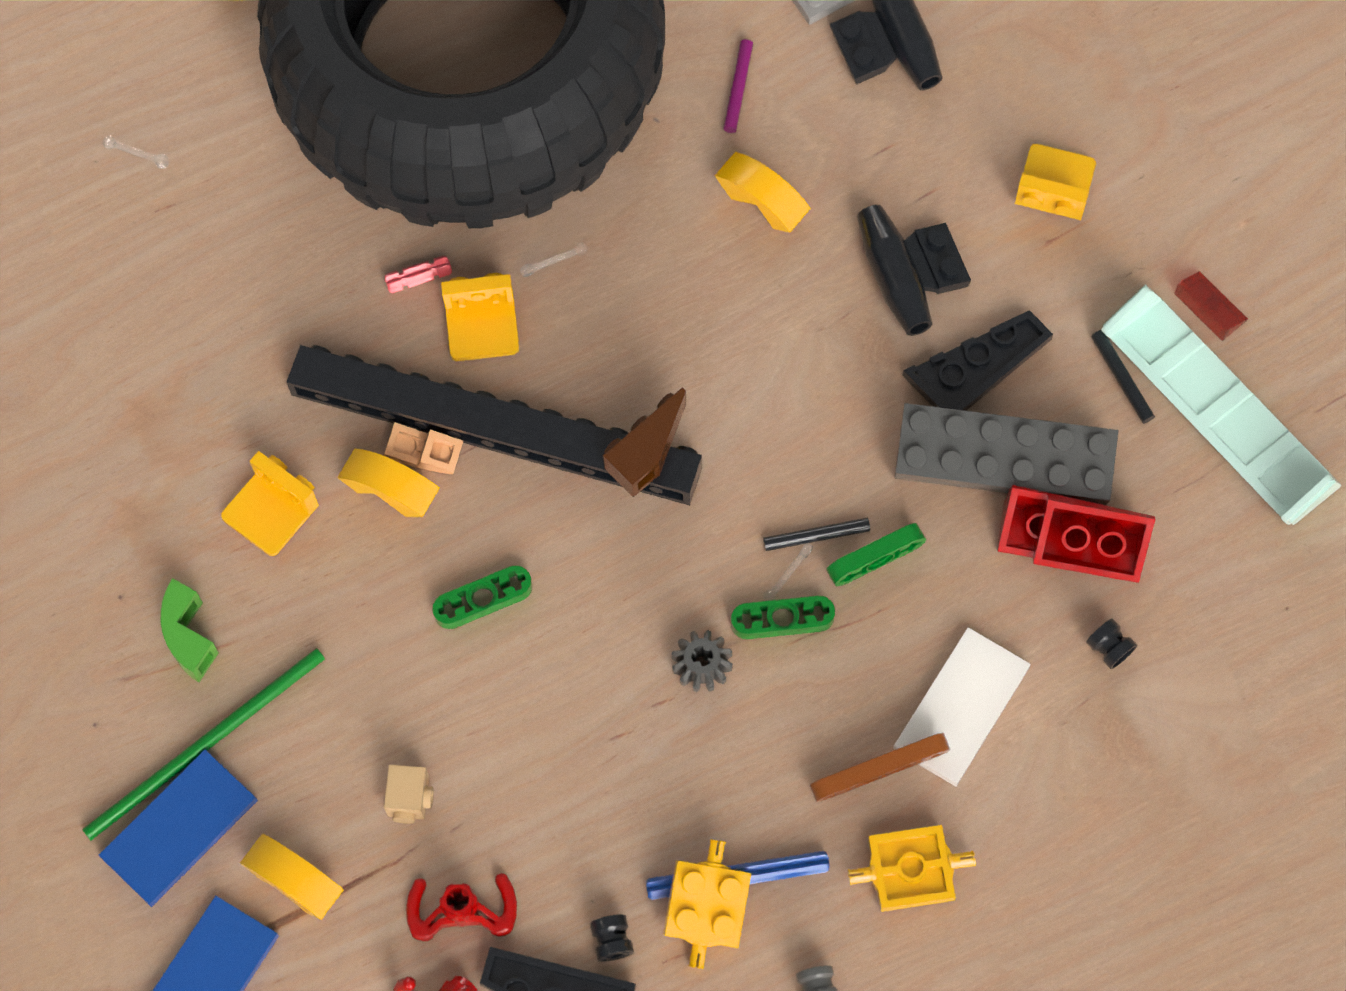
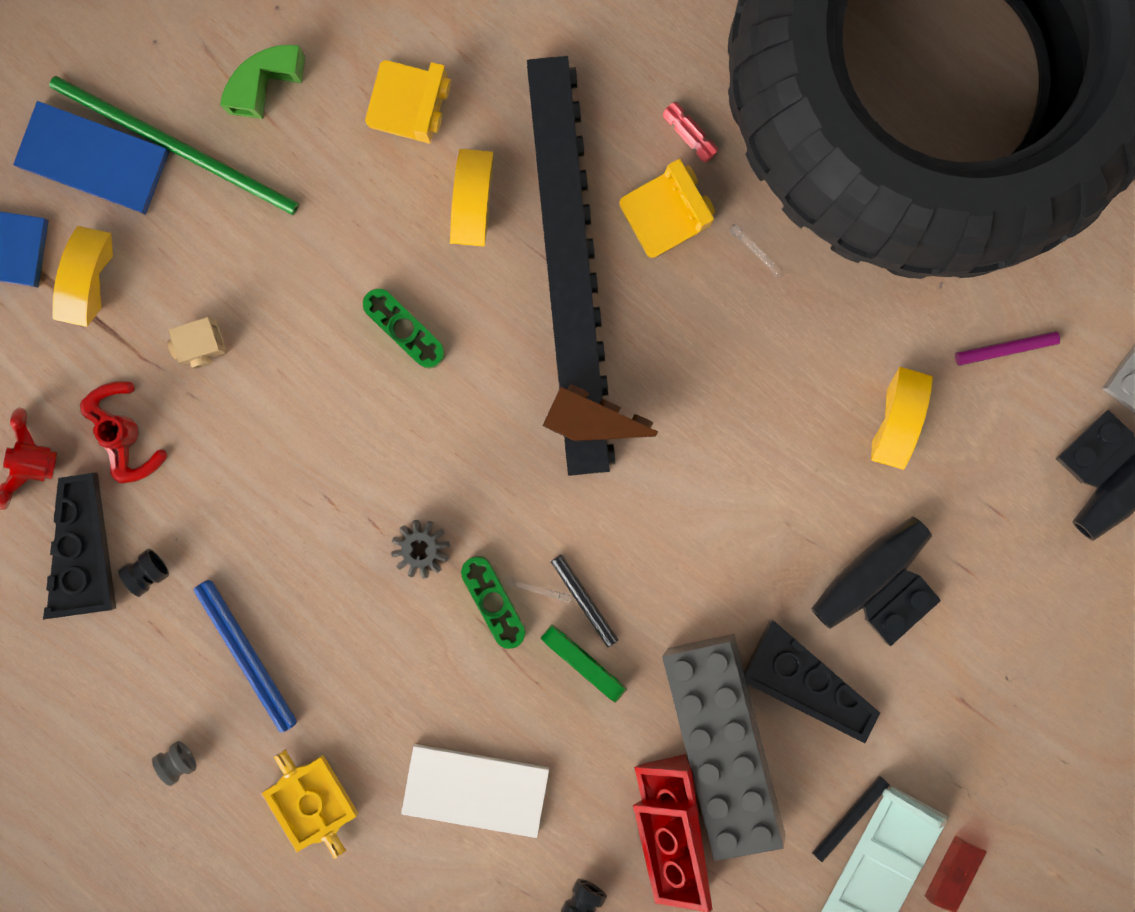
camera: 65 degrees right, 20 degrees up
(423, 450) = (521, 213): light nougat slope -> none
(707, 904) = (203, 642): yellow plate -> none
(880, 767) = (384, 745): dark orange beam -> none
(1056, 181) = (1025, 688): yellow bracket -> none

